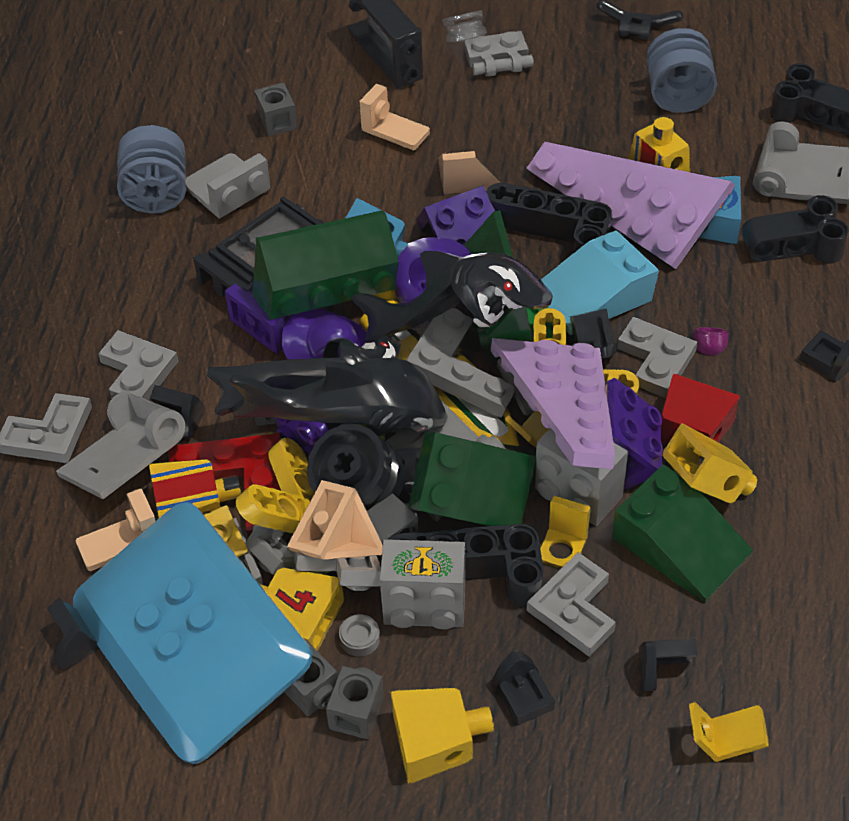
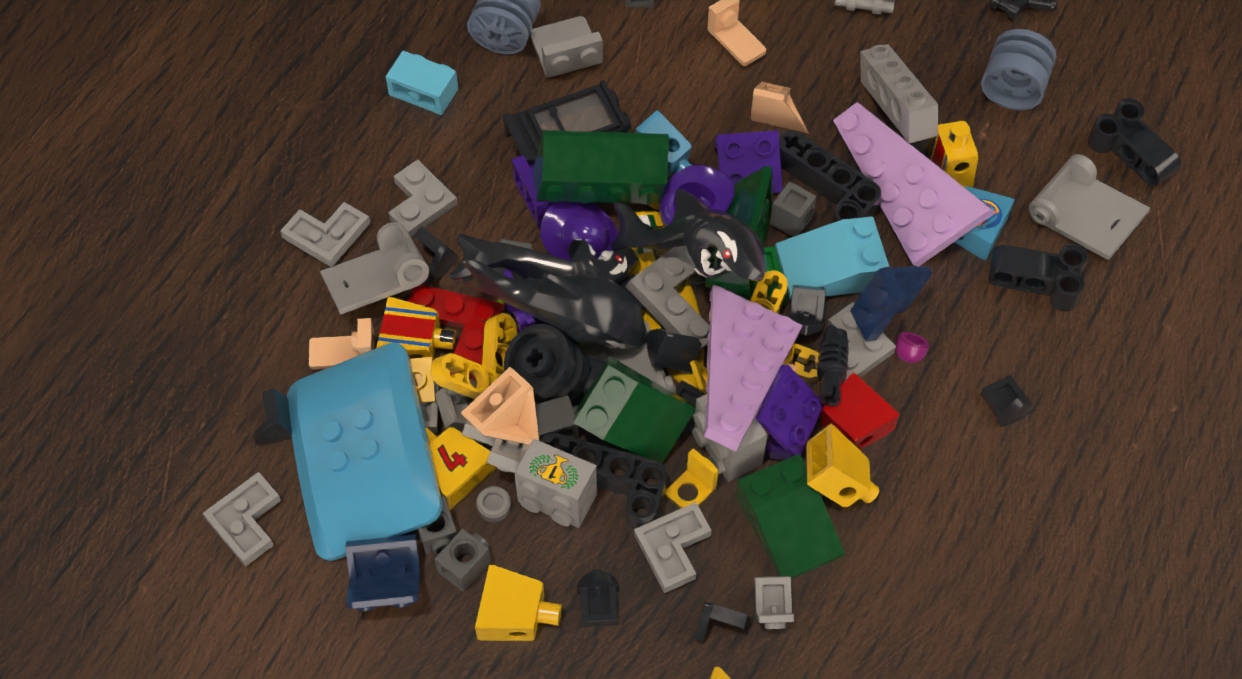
camera: 20 degrees right, 10 degrees up
(71, 756) = (236, 515): none -> light grey plate
(90, 258) = (422, 82): none -> medium azure brick
(271, 746) = (383, 572): none -> dark blue bracket
(479, 412) = (672, 349): none -> black tile
(534, 248) = (793, 209): none -> dark grey brick
(583, 119) = (899, 93): none -> light grey brick
(650, 373) = (832, 364): none -> black hinge
(670, 294) = (885, 295): none -> dark blue bracket
(709, 620) = (773, 601): none -> light grey bracket

